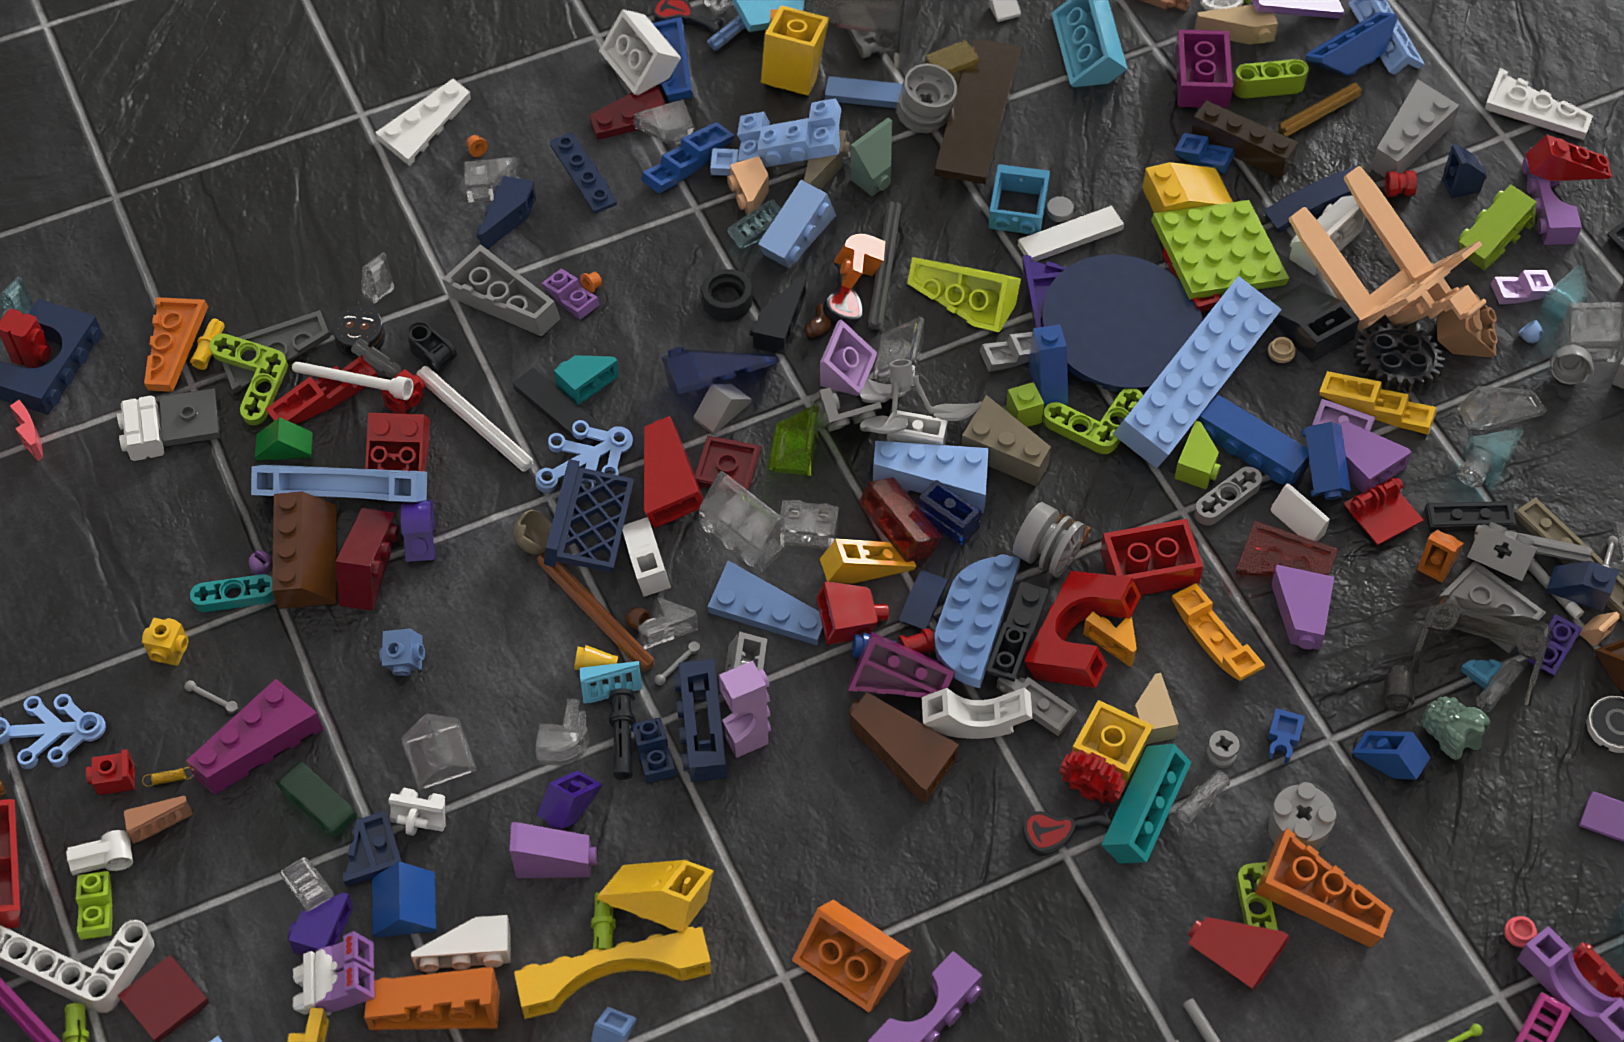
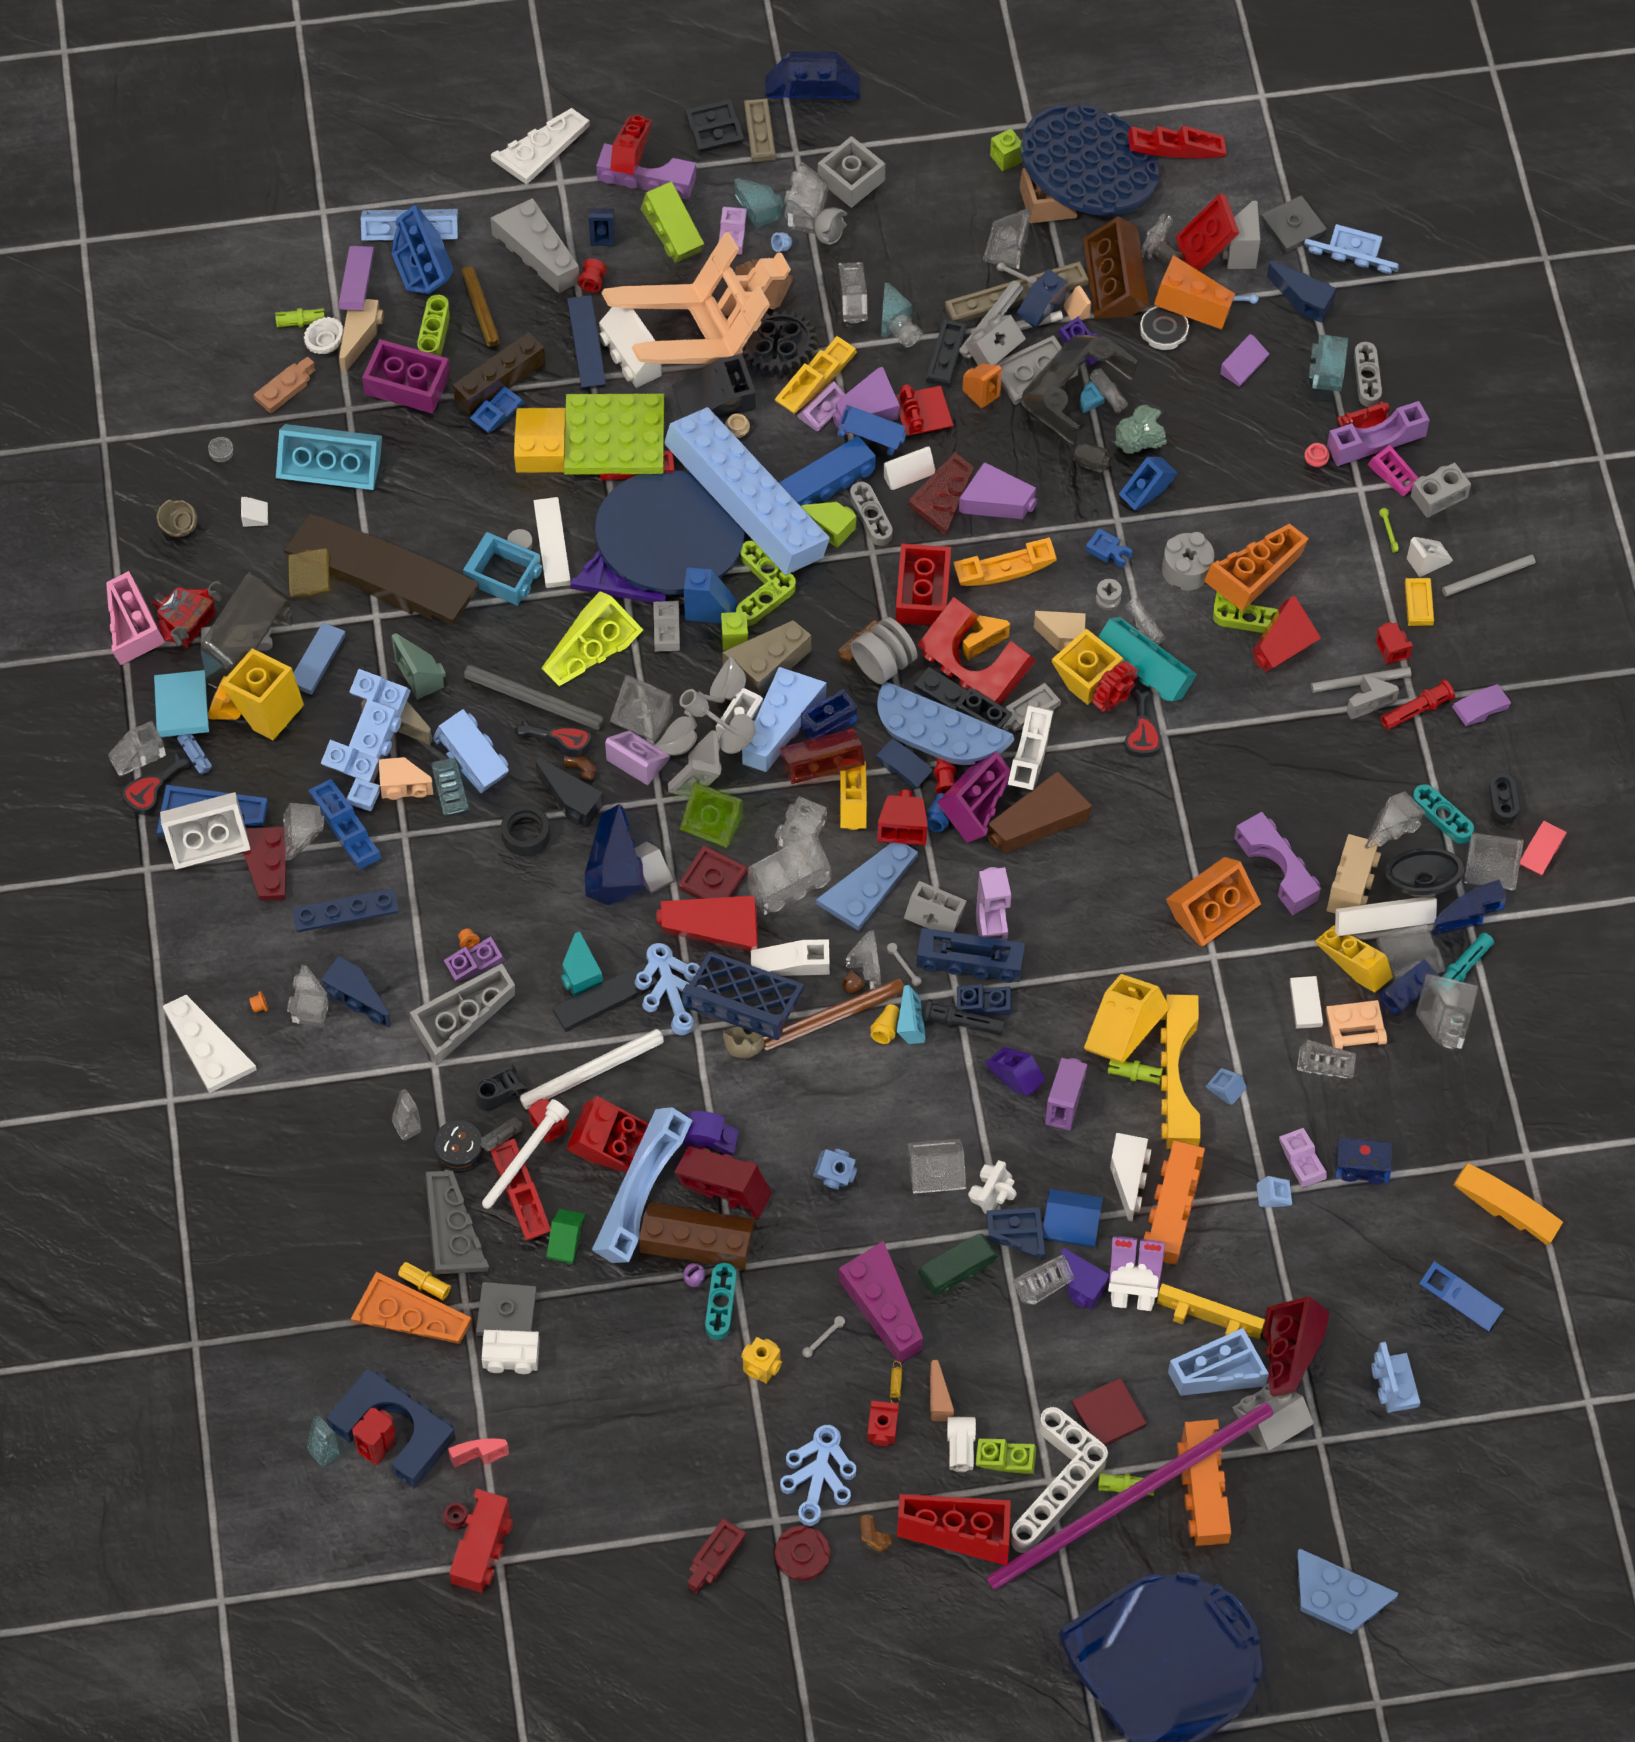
camera: 75 degrees left, 5 degrees up
(259, 365) = (476, 1233): lime beam -> none
(566, 742) = (959, 1061): clear brick -> none
(858, 256) = (528, 711): orange brick -> none
(926, 98) = (361, 604): light grey wheel -> none

